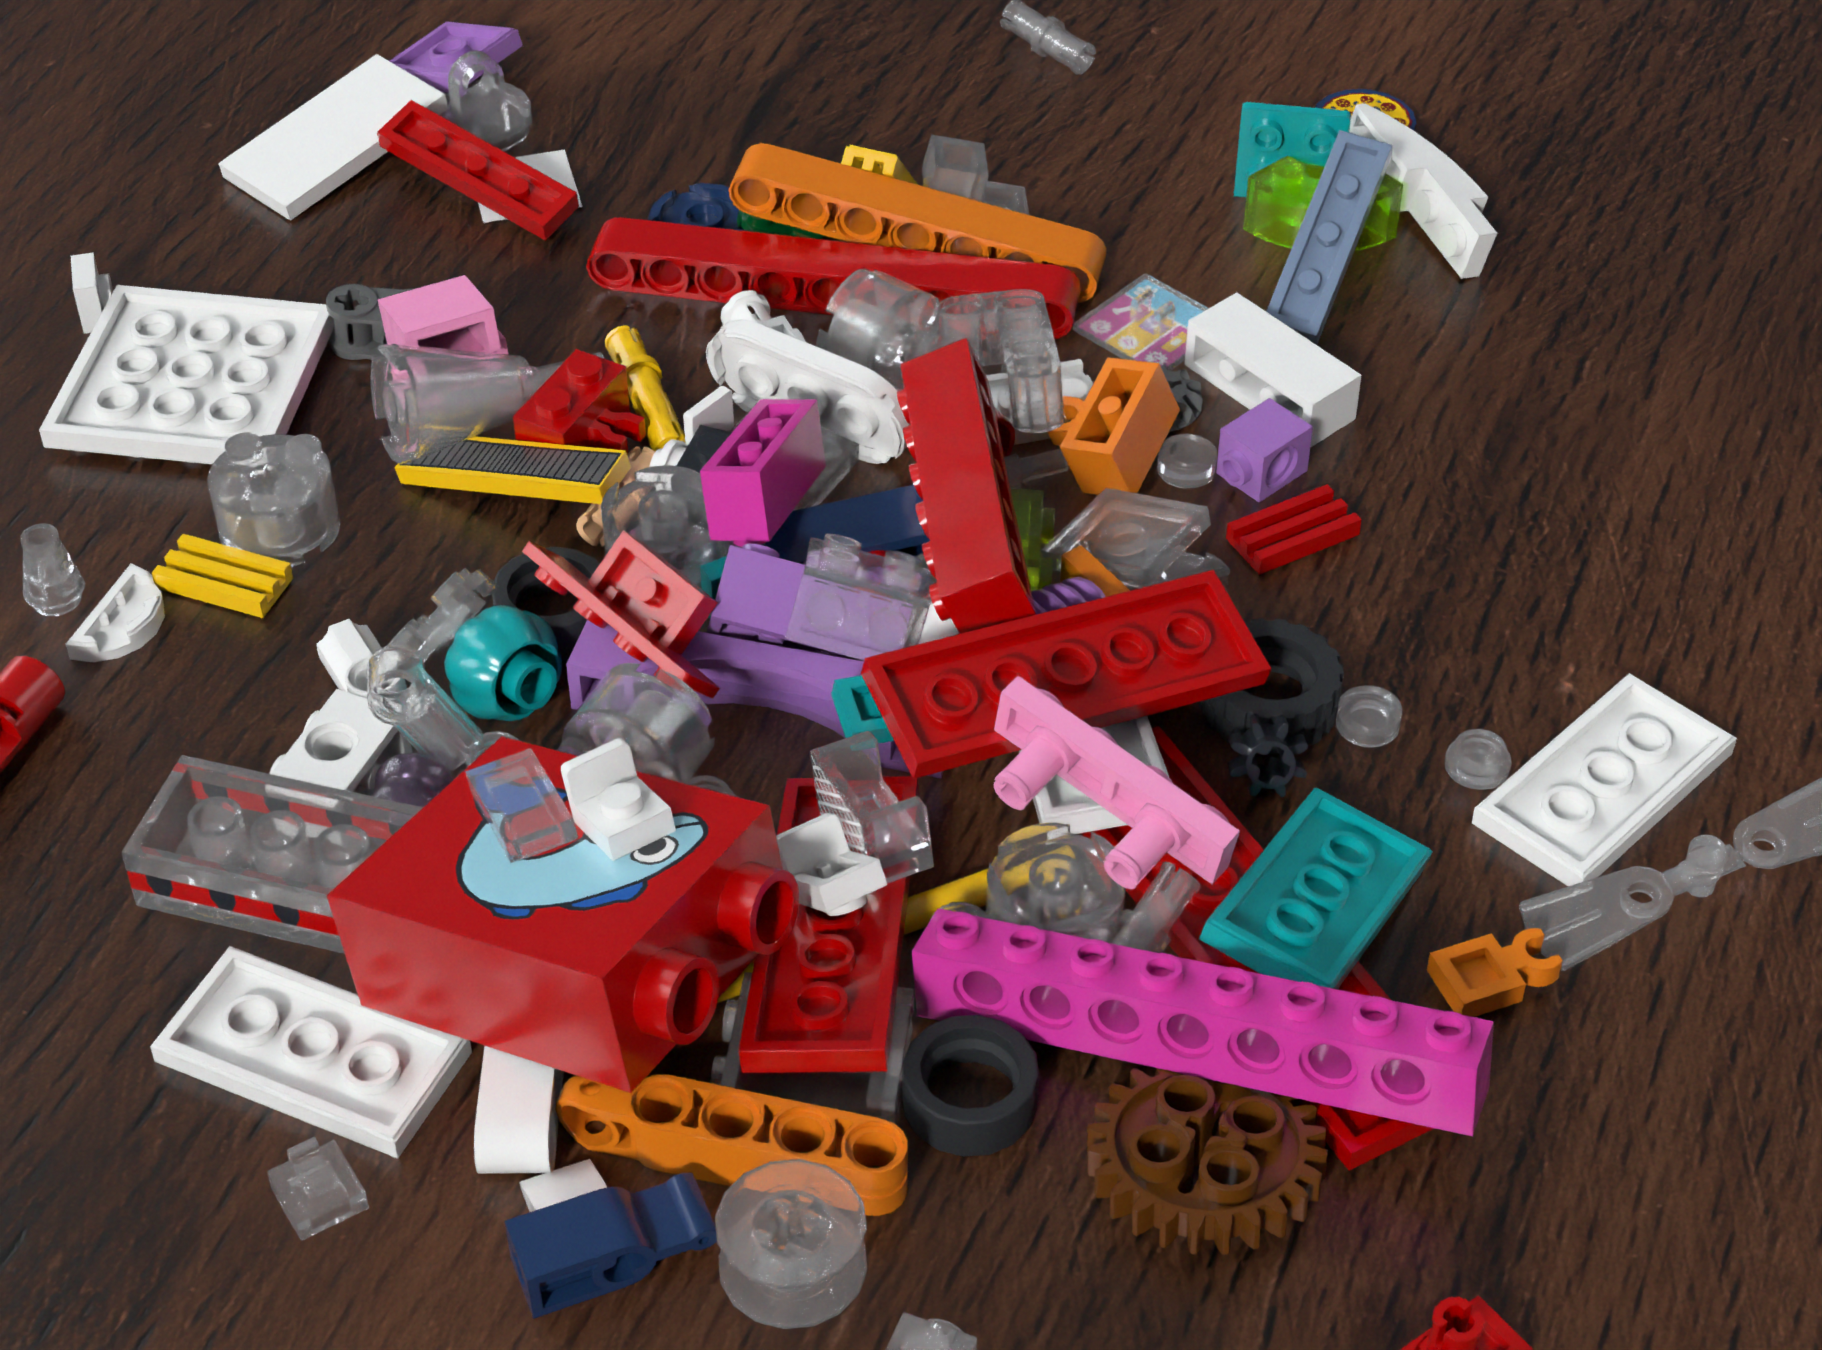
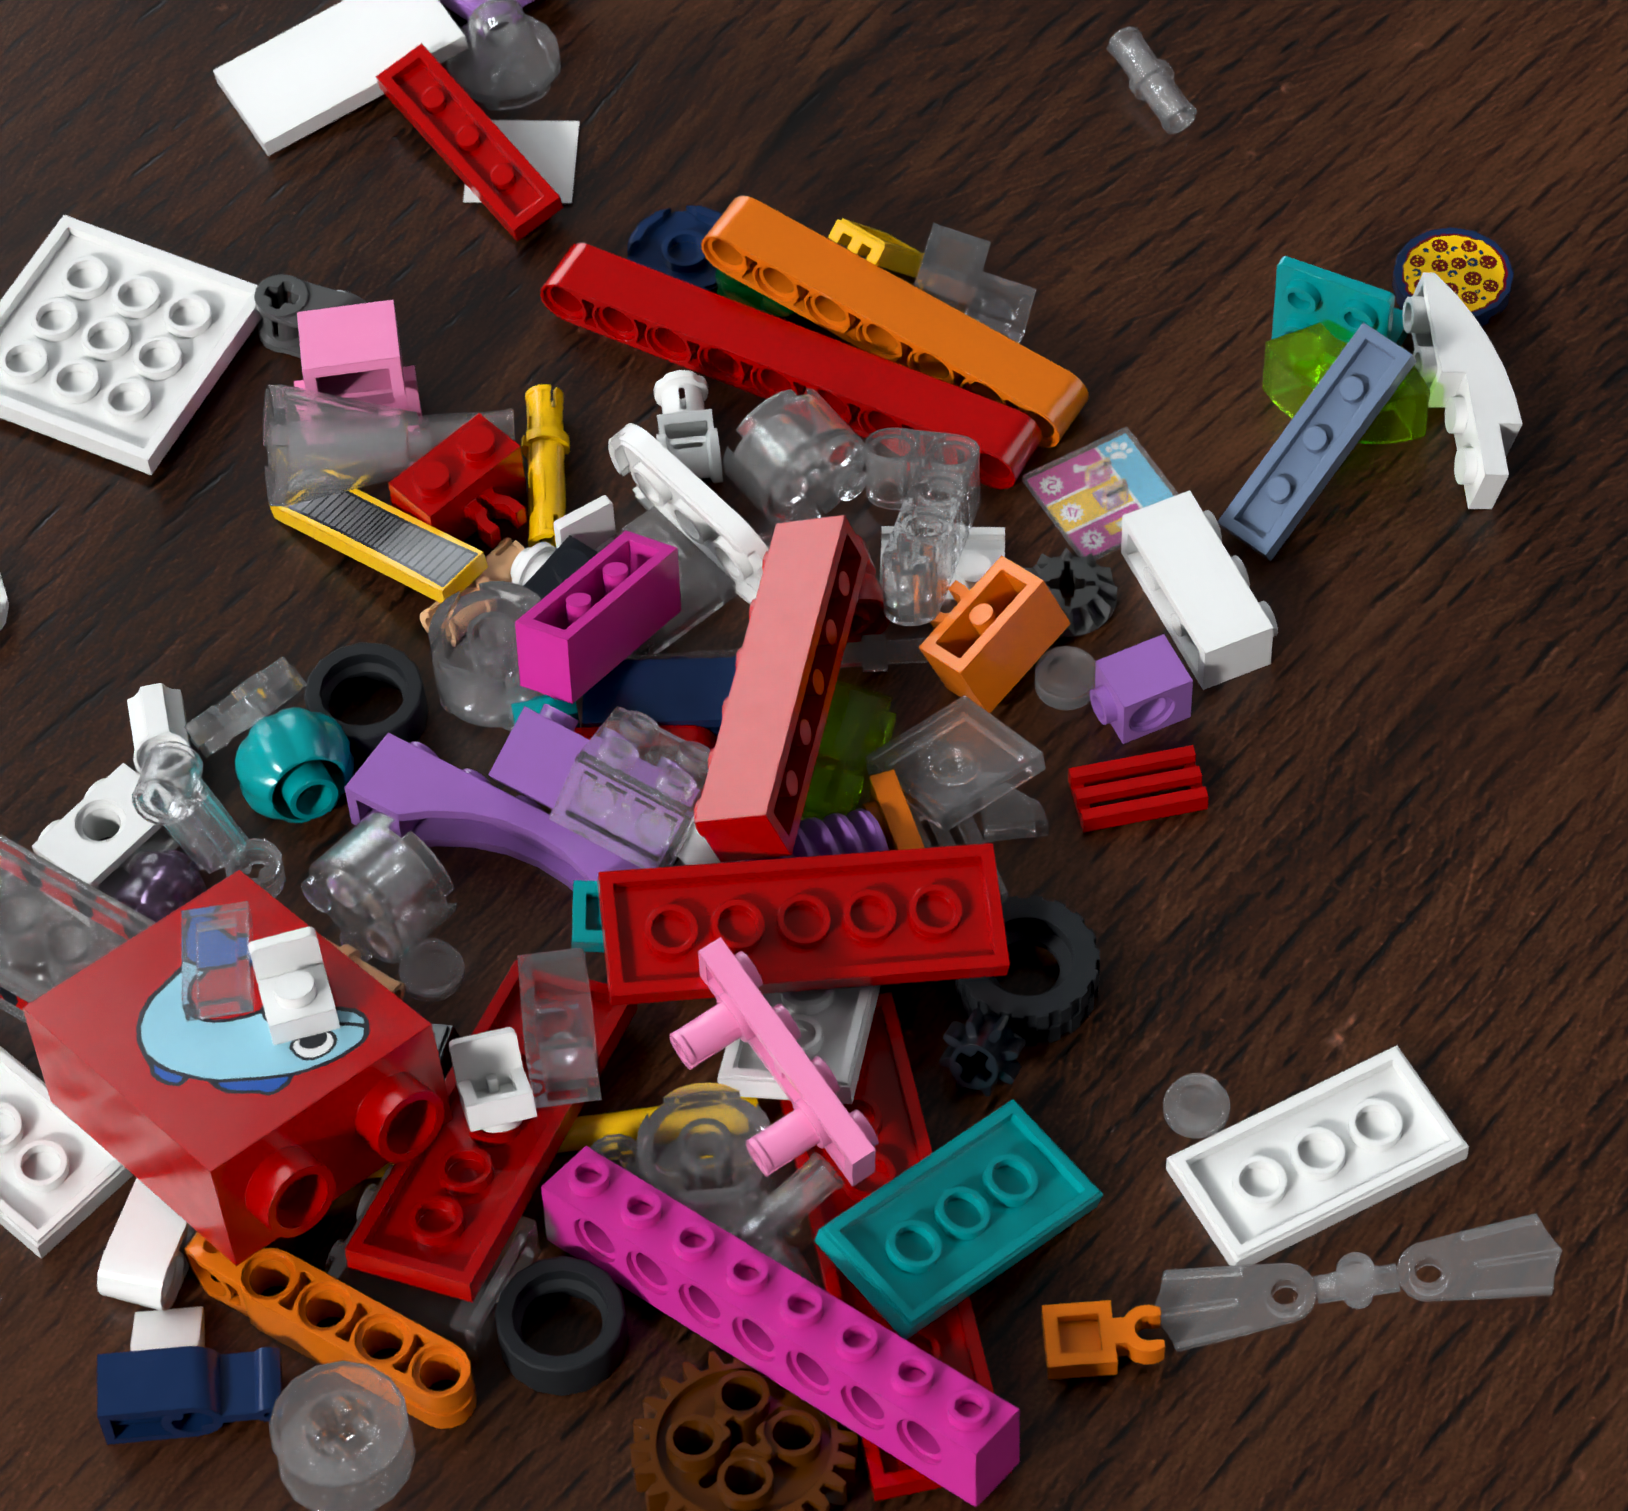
camera: 20 degrees right, 10 degrees up
(90, 289) = (35, 214): white plate -> none
(227, 568) = (37, 566): yellow tile -> none
(274, 495) = (137, 519): clear brick -> none
(641, 599) = (424, 745): bracket -> none
(1369, 716) = (1113, 1027): clear tile -> none

